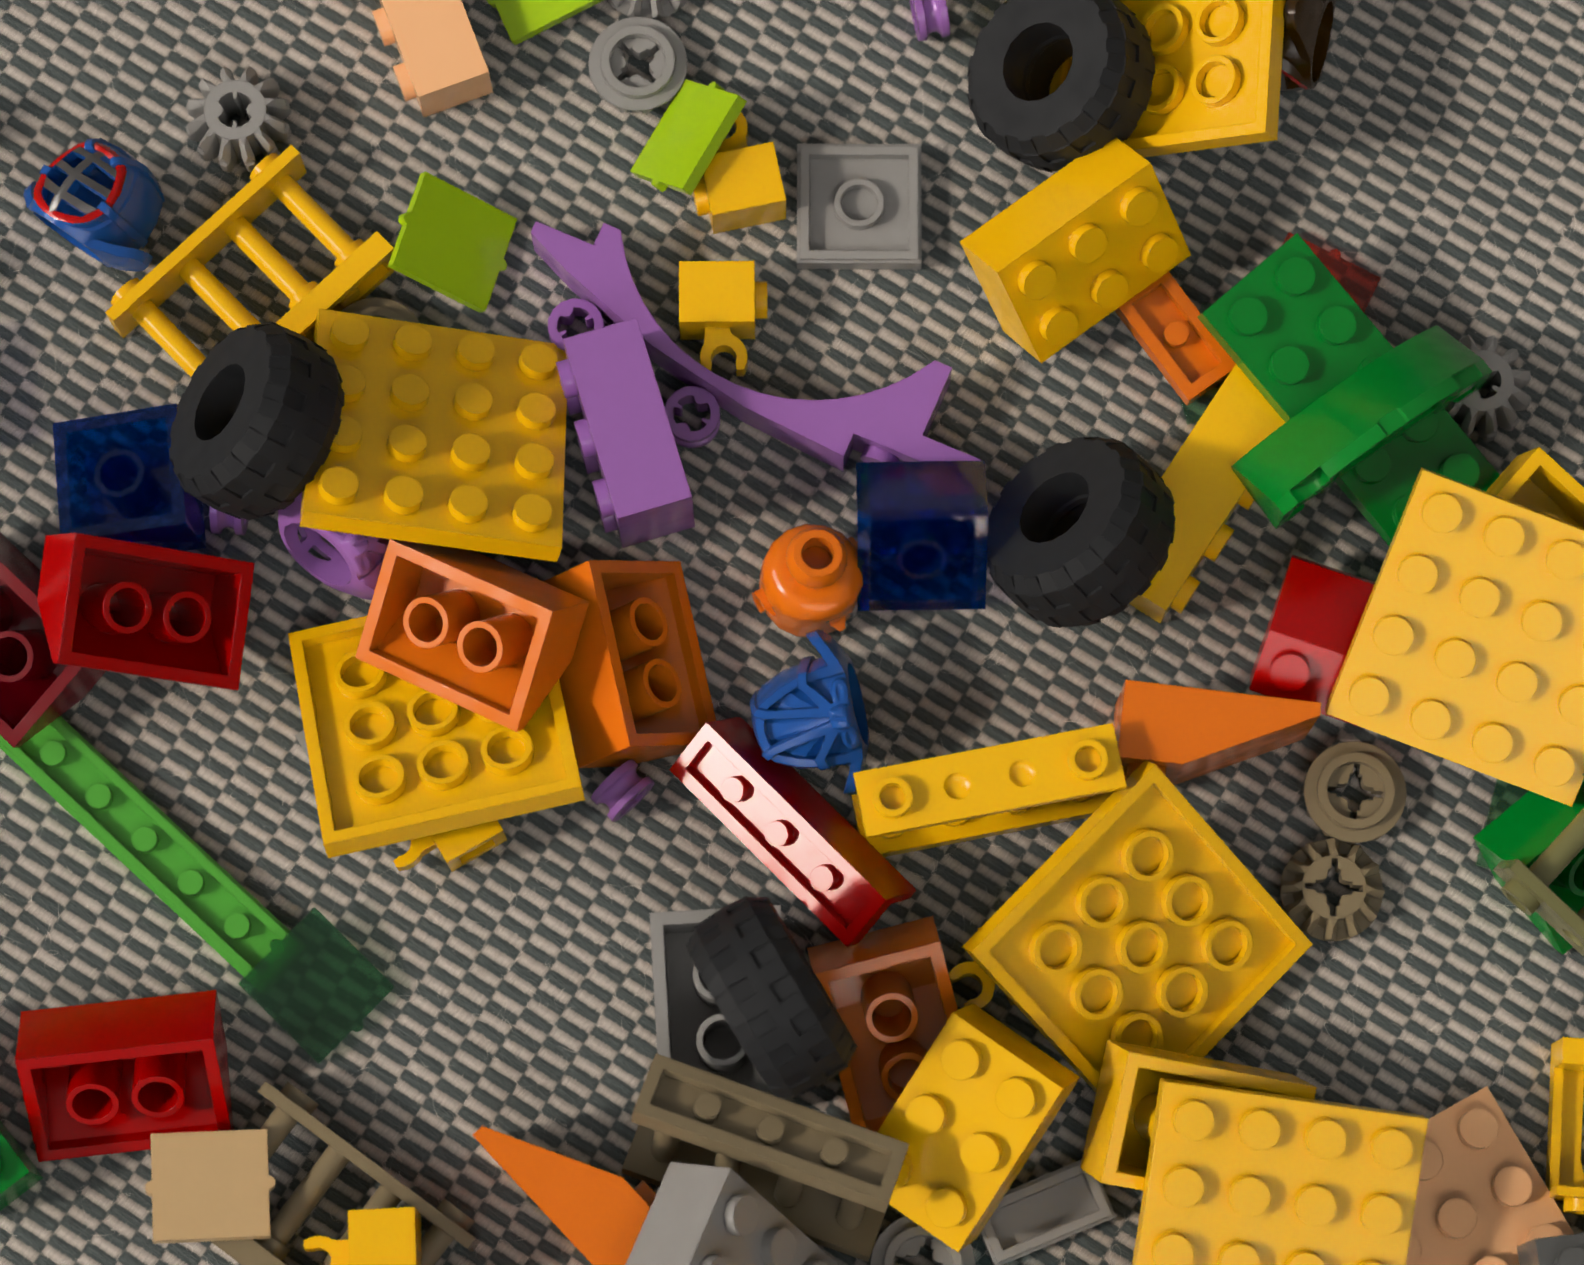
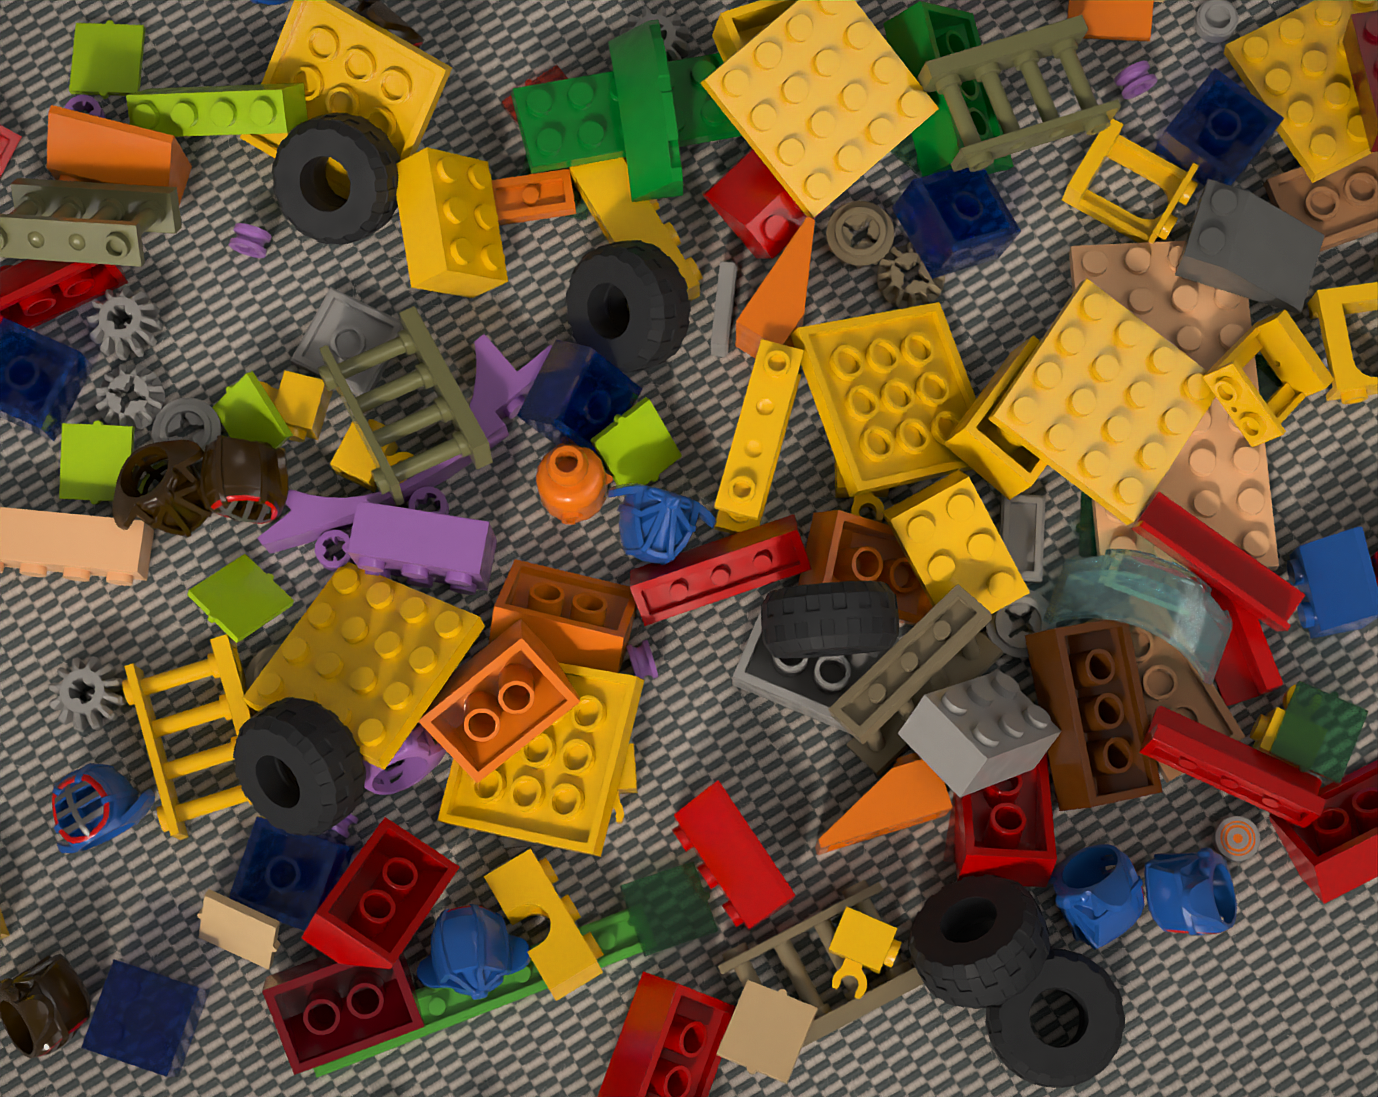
camera: 60 degrees left, 0 degrees up
(30, 457) = (239, 929): none -> tan piece
(137, 761) = (472, 952): none -> blue piece
(189, 880) = (526, 890): none -> yellow arch
(418, 1032) = (732, 857): none -> red slope
(533, 99) = (175, 502): none -> dark brown piece
(599, 165) = (244, 479): none -> dark brown piece
(821, 368) = (431, 372): none -> olive fence
(903, 639) = (636, 445): none -> lime piece
(1152, 661) = (723, 309): none -> light grey tile
(1431, 908) = (955, 220): none -> clear blue brick

